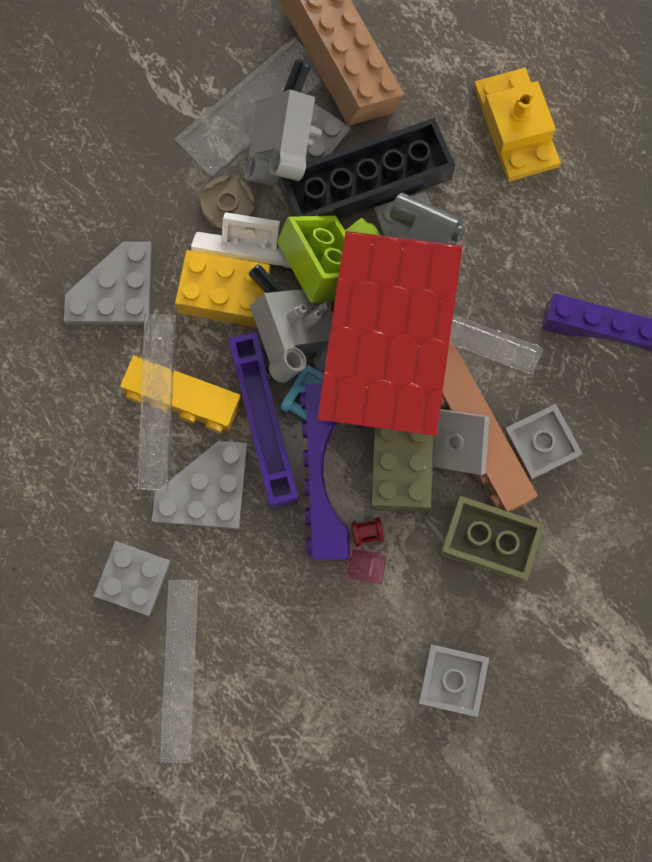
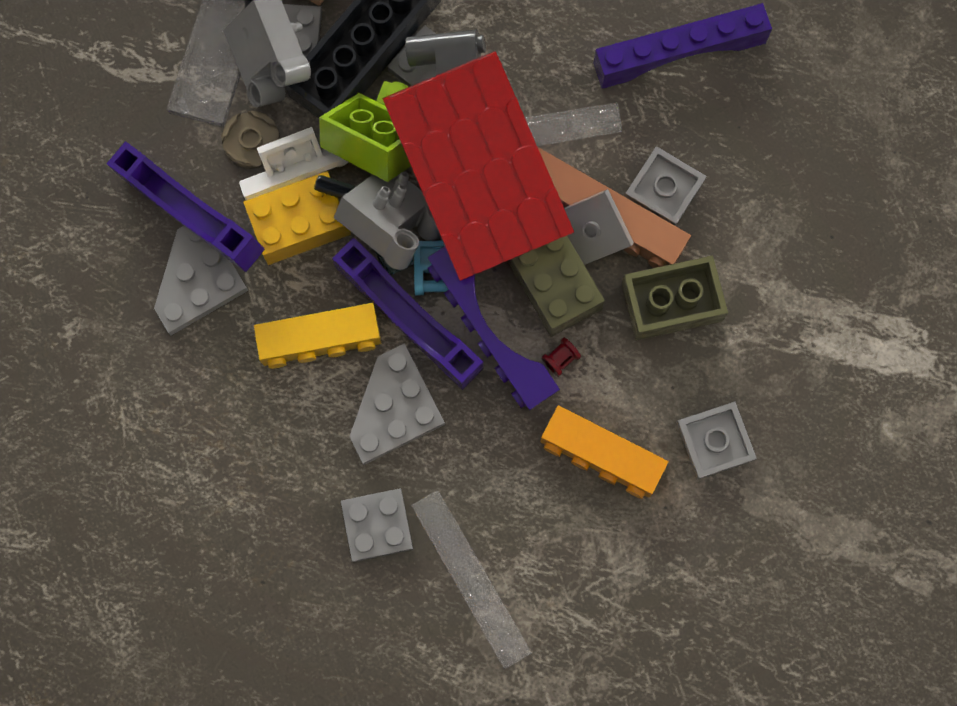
camera: 25 degrees left, 0 degrees up
(138, 228) = (185, 207): none -> dark purple arch
(156, 402) = (302, 352): clear plate -> none
(353, 632) = (604, 452): none -> light orange brick
(366, 566) = (578, 388): clear pink slope -> none

